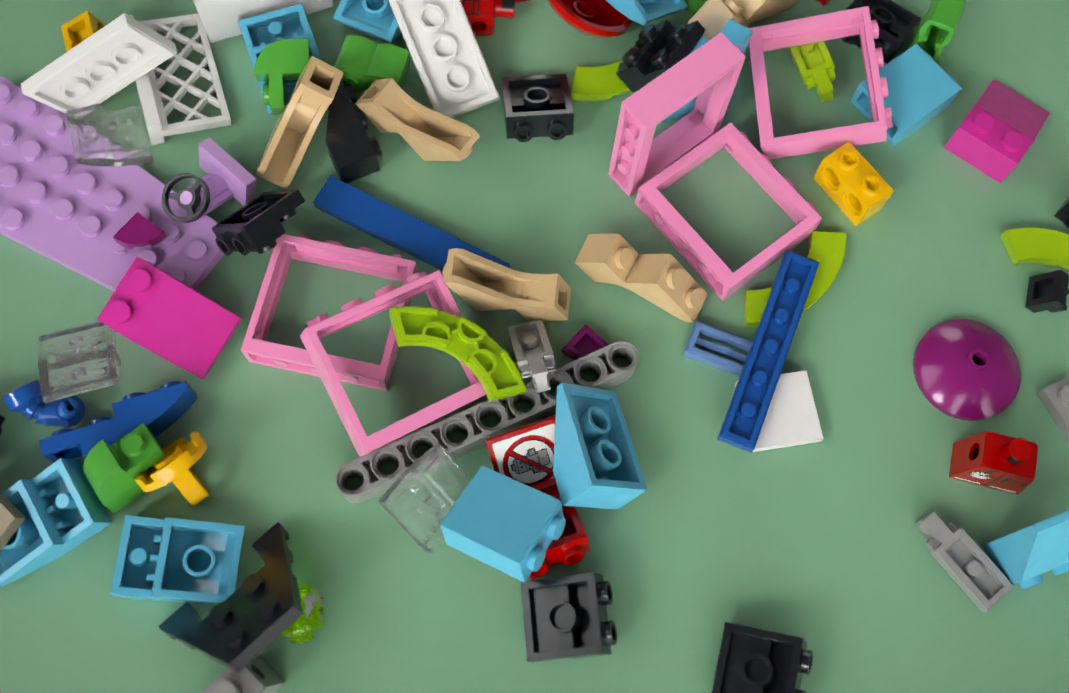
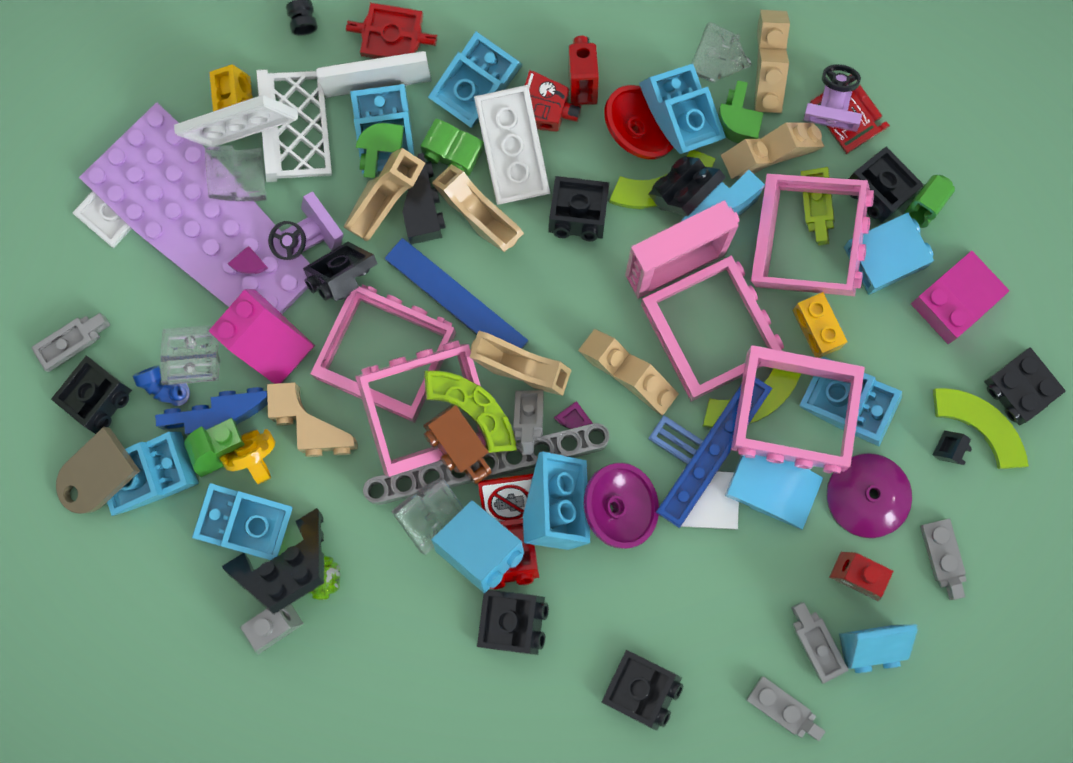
camera: 20 degrees right, 10 degrees up
(257, 426) = (312, 433): none -> tan arch
(450, 394) = (457, 443): none -> dark orange brick
(674, 436) = (632, 501): none -> magenta dish
(851, 376) = (775, 489): none -> medium azure slope
(863, 222) = (804, 365): none -> bright pink window
(914, 261) = (877, 405): none -> medium azure slope
(947, 658) = (784, 709): none -> light grey hinge

